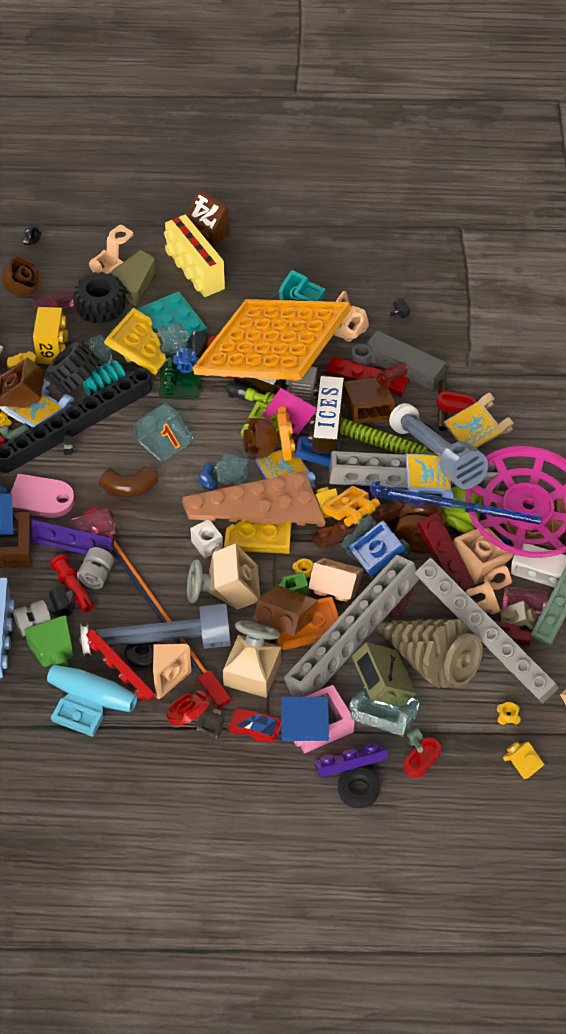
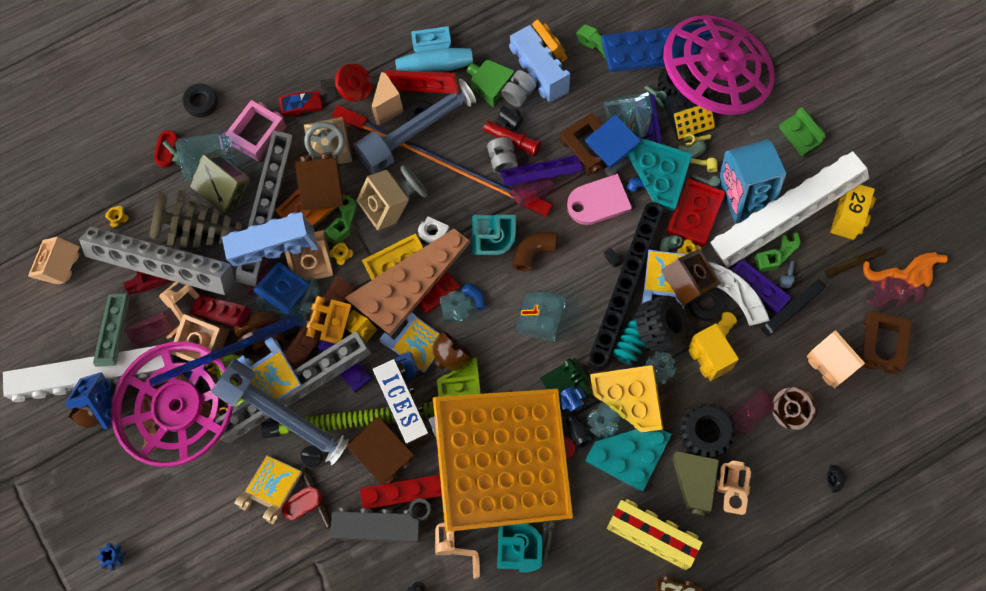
camera: 155 degrees right, 20 degrees up
(156, 508) = (492, 234): none -> teal brick
(285, 432) = (425, 357): light orange plate -> none
(298, 410) = (434, 380): dark pink flag -> none
(305, 719) = (258, 111): blue tile -> none
(350, 759) = (214, 112): dark purple plate -> none
(364, 563) = (270, 240): none -> light blue wedge
(392, 374) = (371, 488): clear red pin -> none
(519, 614) = (144, 303): dark tan bracket -> none
(524, 759) = (89, 183): yellow bracket -> none

